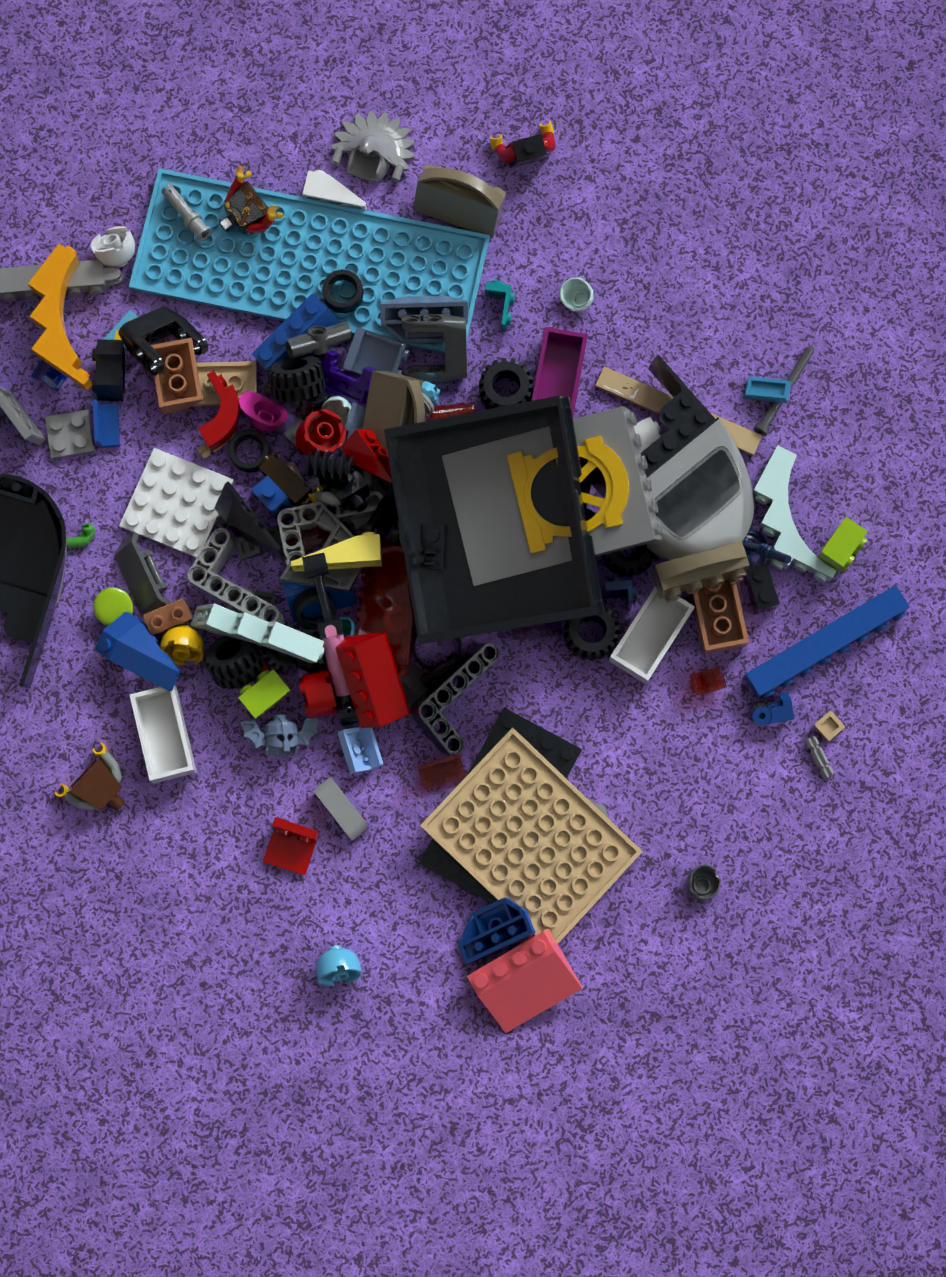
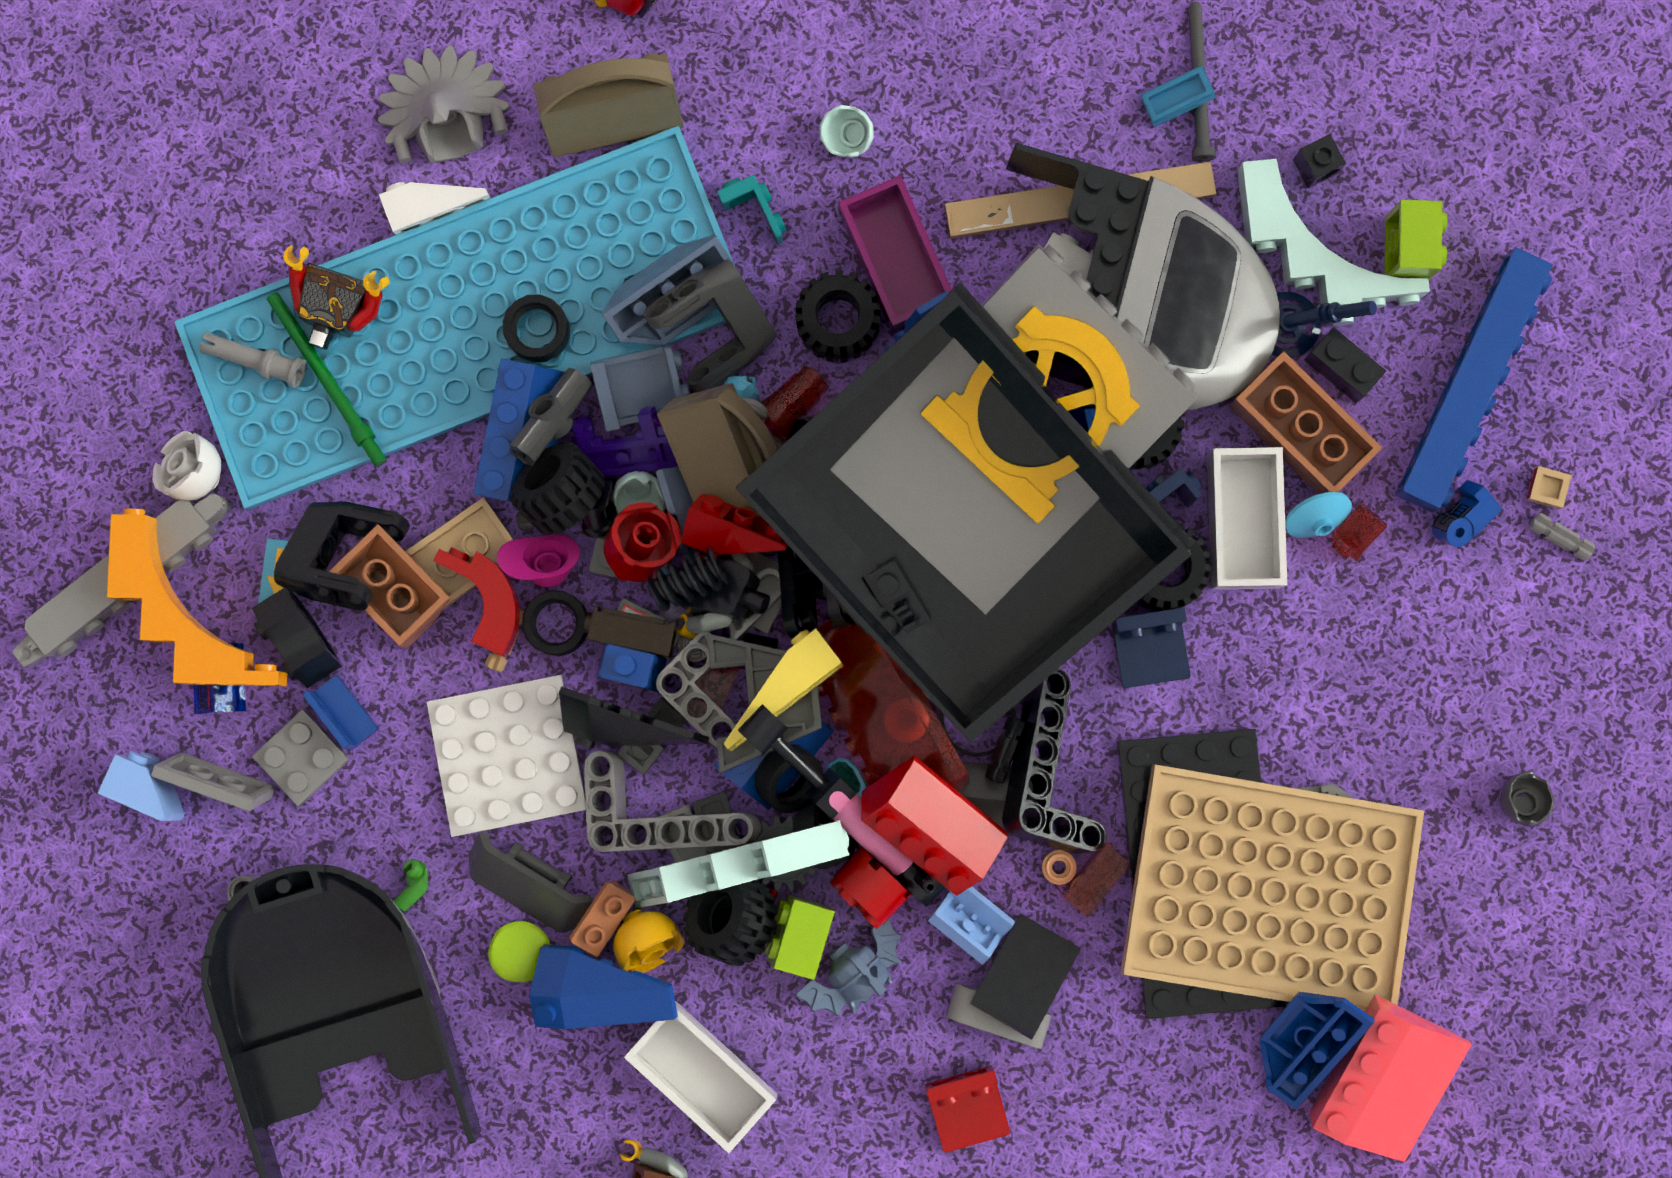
camera: 30 degrees left, 5 degrees up
(215, 286) = (361, 433): none -> green bar
(369, 795) = (1025, 976): none -> black tile
(423, 746) = (1070, 867): none -> light nougat plate
(555, 669) = (1151, 648): none -> dark blue bracket
(691, 656) = (1318, 515): none -> medium azure dish
(699, 570) = (1271, 389): dark tan piece -> none
(820, 472) = (1319, 161): none -> black brick

